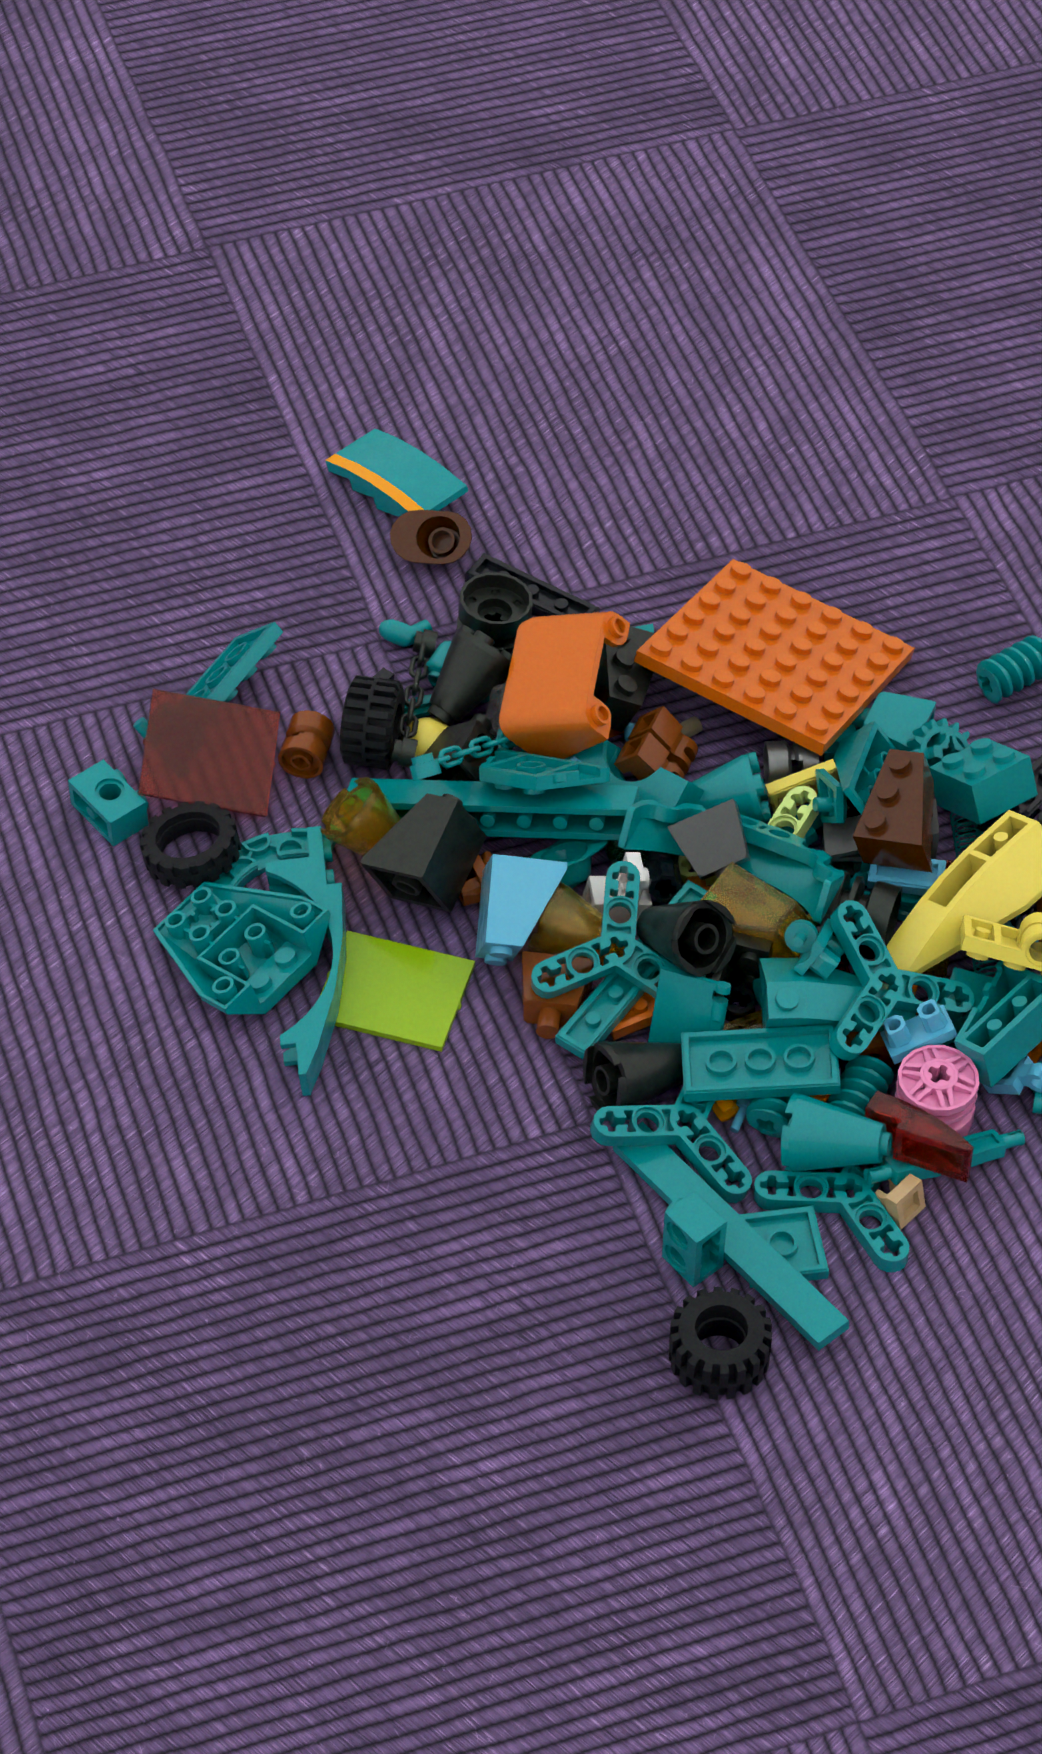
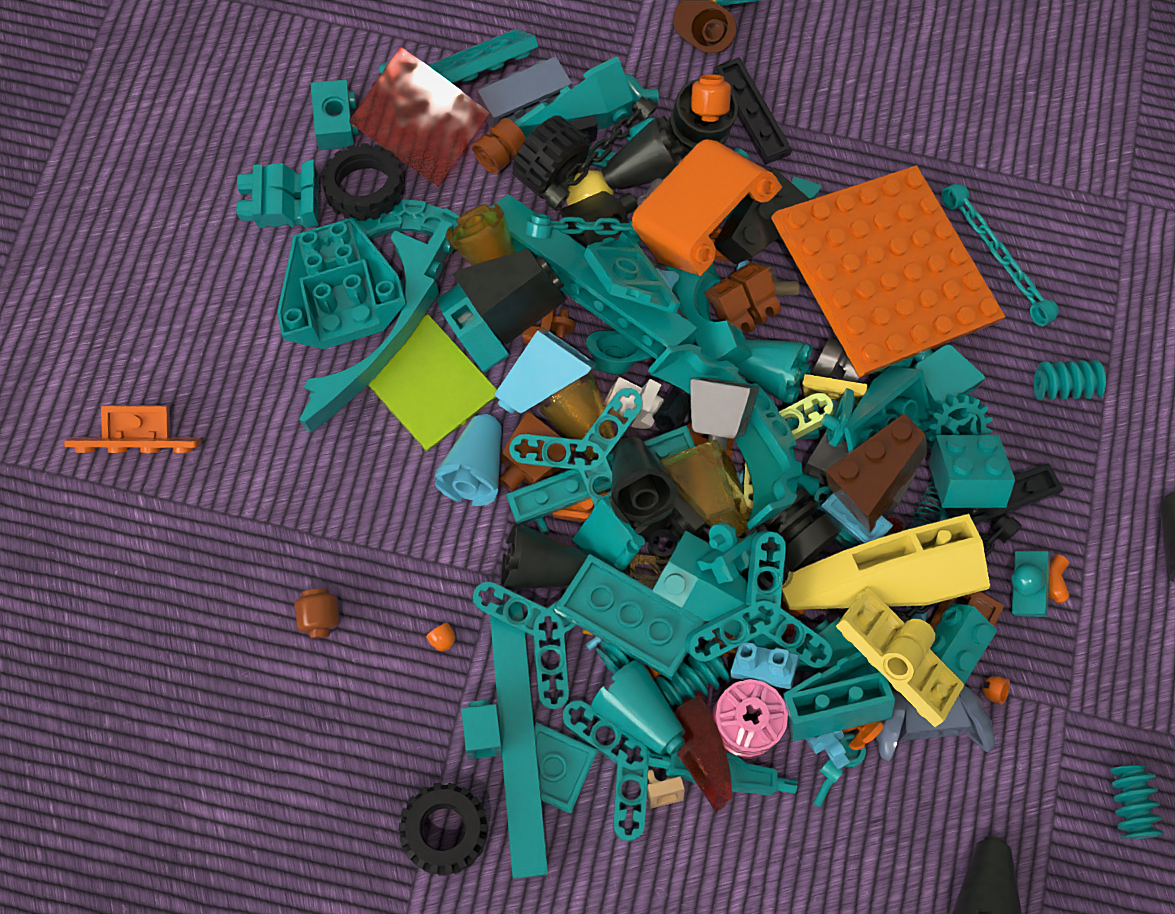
camera: 25 degrees right, 20 degrees up
(113, 901) = (275, 193): none -> teal hips
(127, 1176) = (134, 427): none -> orange bracket
(298, 681) = (523, 91): none -> sand blue brick
(378, 644) = (600, 94): none -> teal wedge
(404, 912) = (471, 329): none -> teal slope
(448, 1234) = (317, 613): none -> dark orange head
(496, 587) = (711, 97): none -> orange head
(504, 1029) = (473, 463): none -> medium azure cone
(587, 1193) = (442, 637): none -> orange hinge
(944, 628) = (1041, 312): none -> teal piece

